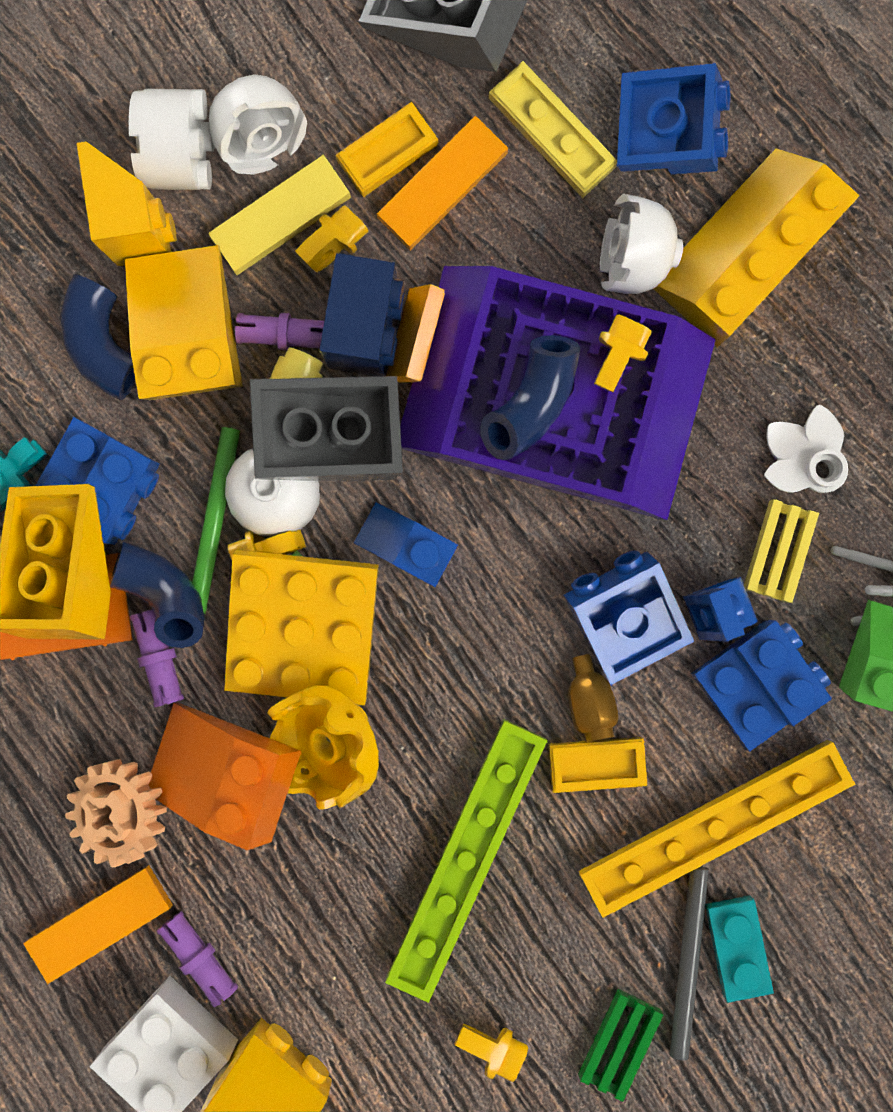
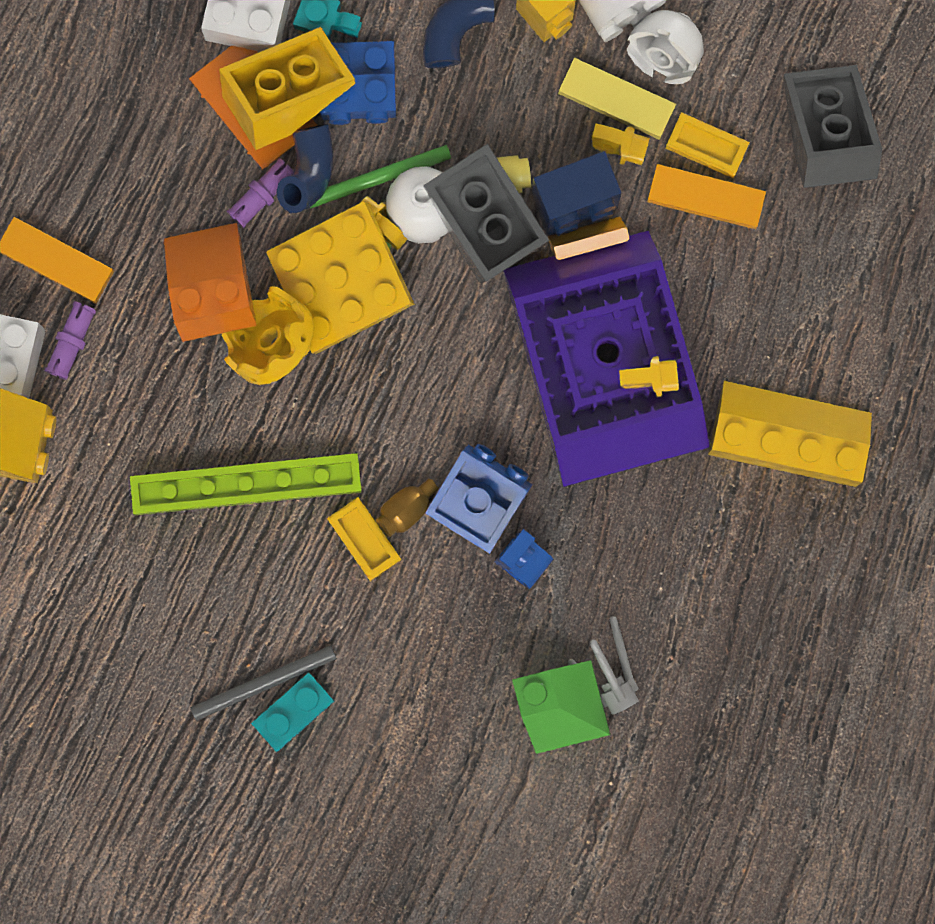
camera: 60 degrees right, 5 degrees down
(116, 813) = (140, 226): light nougat gear -> none
(180, 324) = (500, 76): yellow slope -> none
(279, 331) = (535, 144): medium lavender pin -> none
(406, 544) = (439, 318): blue slope -> none
(502, 1054) = (125, 586): yellow piece -> none
(537, 400) = (585, 340): dark blue cylinder -> none
(552, 129) = (790, 250): light yellow tile -> none
(604, 1081) = (144, 670): green tile -> none
(639, 246) = (740, 356): white cylinder -> none
(673, 119) = (844, 328): blue plate -> none
(716, 827) = (368, 644): yellow plate -> none
(763, 683) = (488, 619): blue plate -> none
(798, 557) = (557, 587): light yellow tile -> none
(800, 450) = (668, 553): white plate -> none

